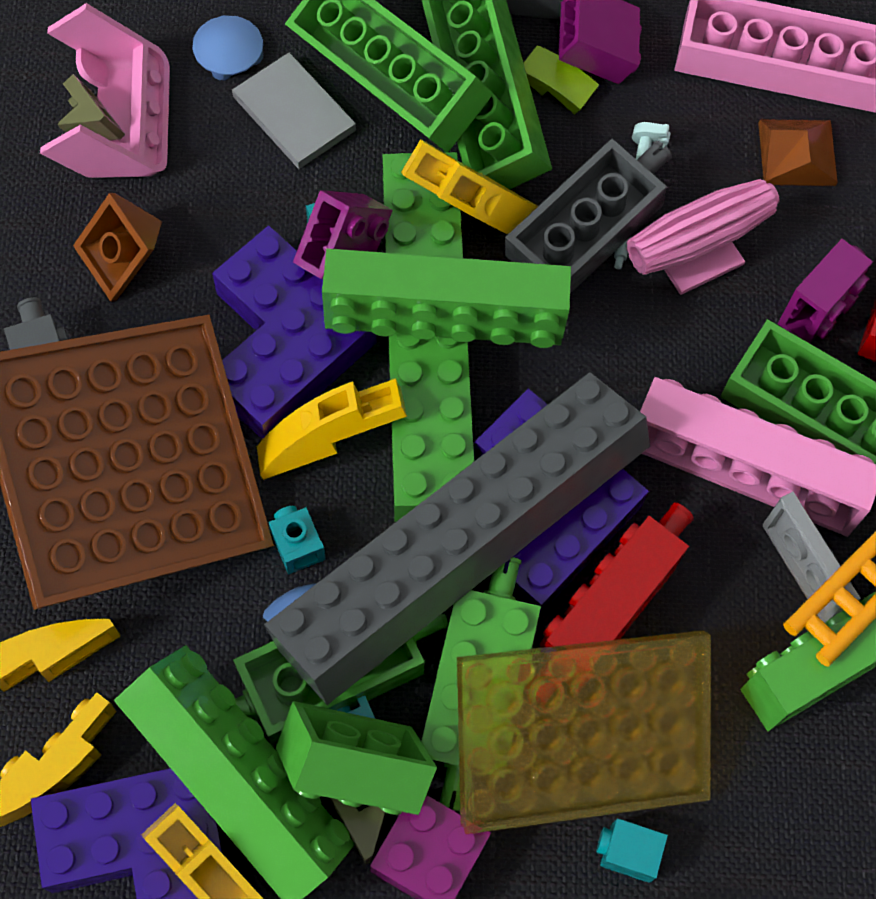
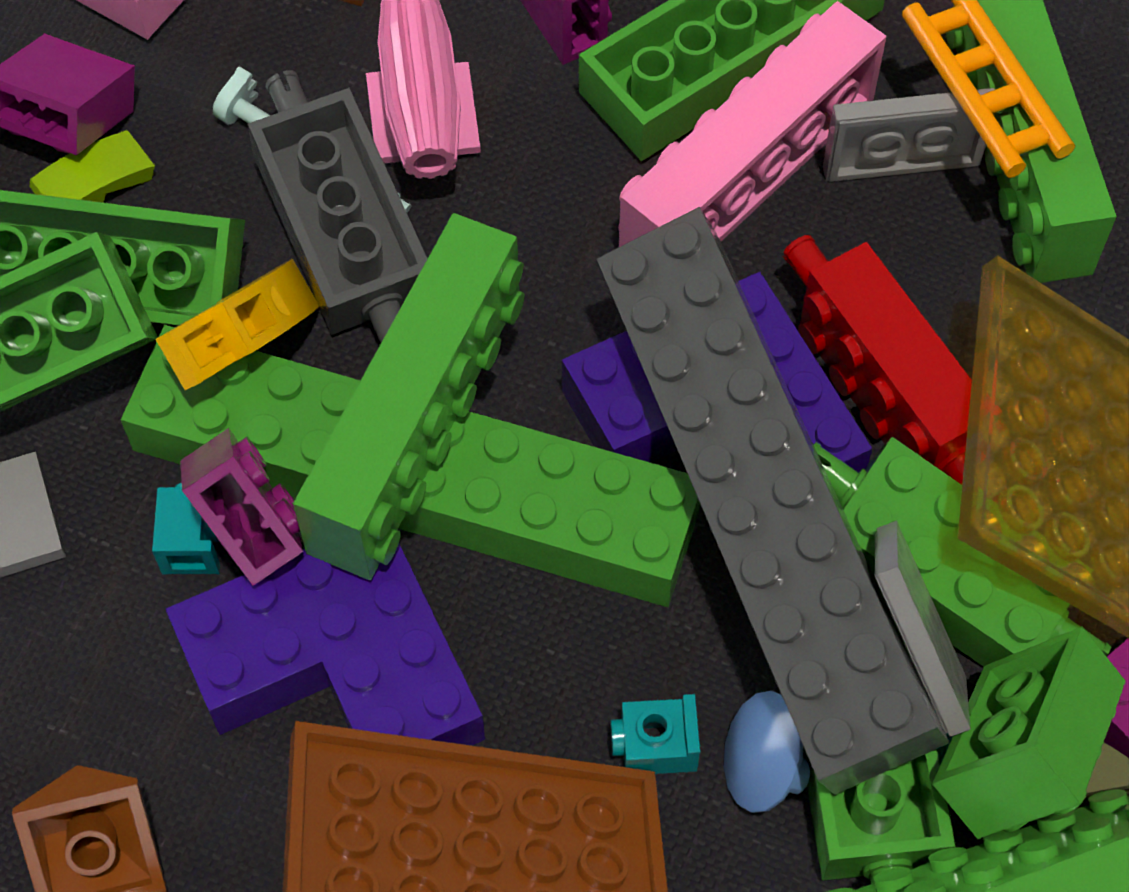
camera: 65 degrees left, 5 degrees down
(331, 417) = (513, 633): yellow slope -> none
(402, 663) = (921, 628): none -> light grey tile

